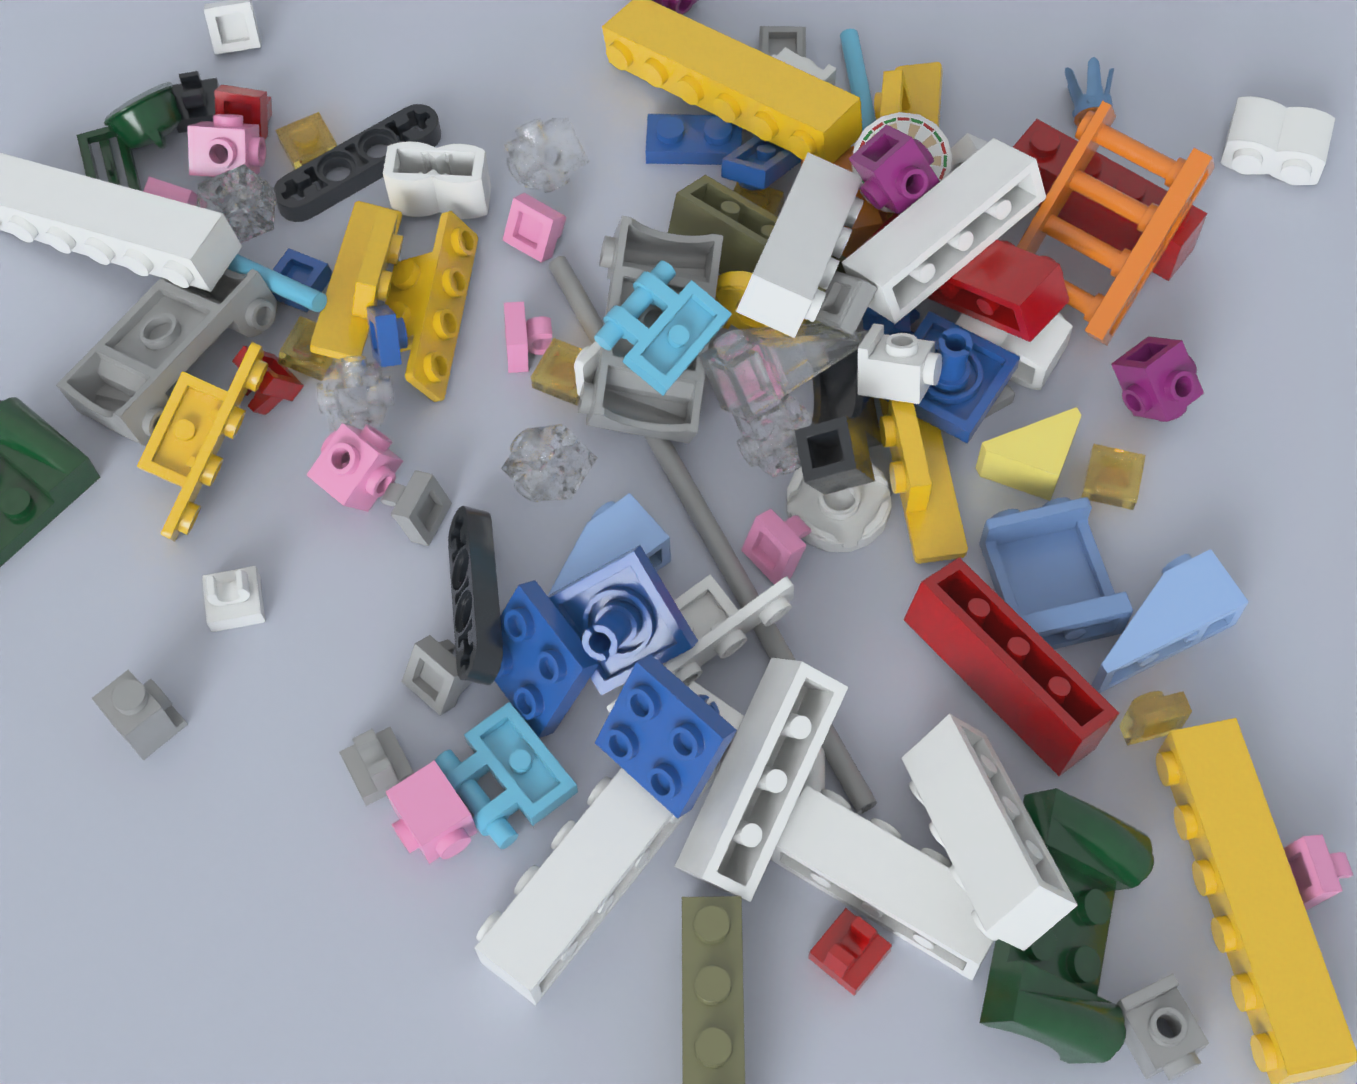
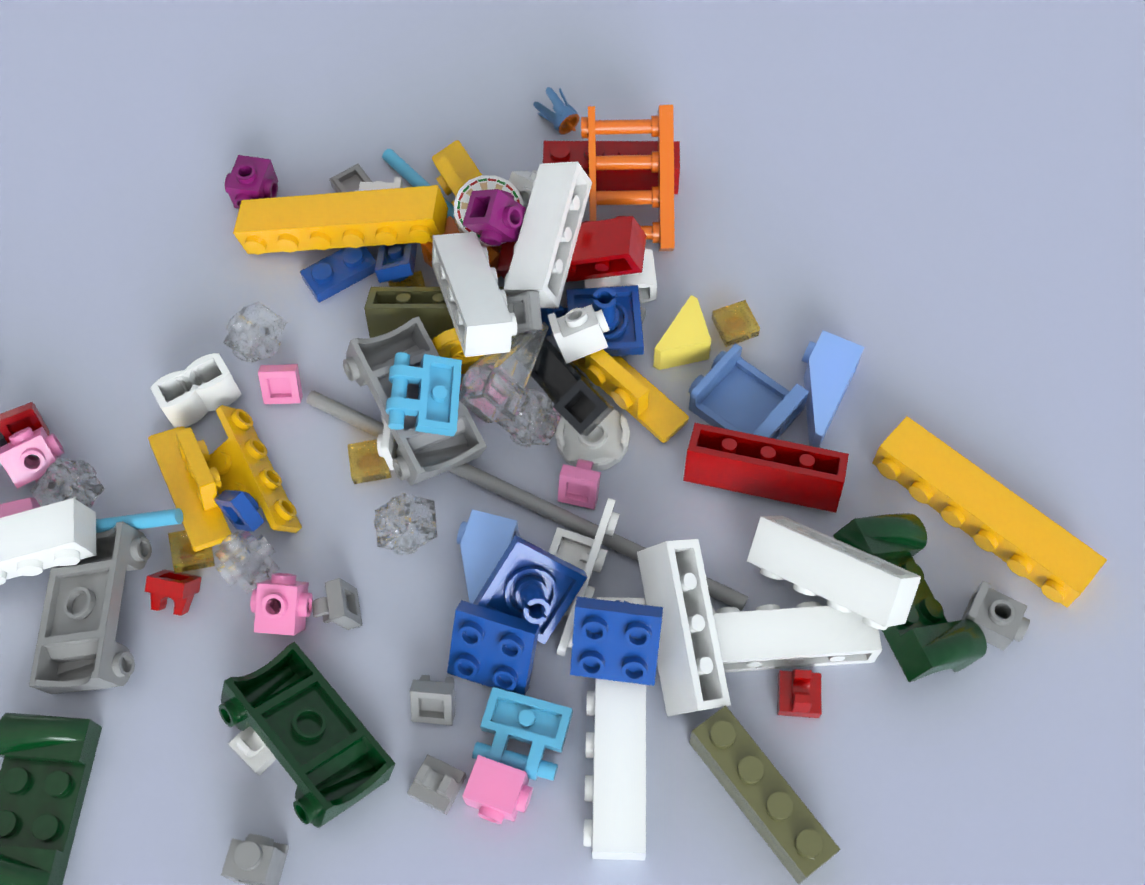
camera: 35 degrees left, 0 degrees up
(192, 432) = (155, 657): yellow bracket -> none
(282, 620) = (308, 733): none -> dark green piece
(304, 270) = (146, 502): blue plate -> none
(305, 139) = (83, 419): clear yellow plate -> none
(353, 156) = (121, 409): black beam -> none
(475, 596) = (423, 636): black beam -> none
(524, 336) = (326, 456): bright pink tile -> none
(1154, 716) = (860, 443): clear yellow plate -> none
(1158, 379) = (720, 251): magenta brick -> none
(1278, 140) = (680, 79): white brick -> none
(1316, 870) = (1006, 470): bright pink tile -> none

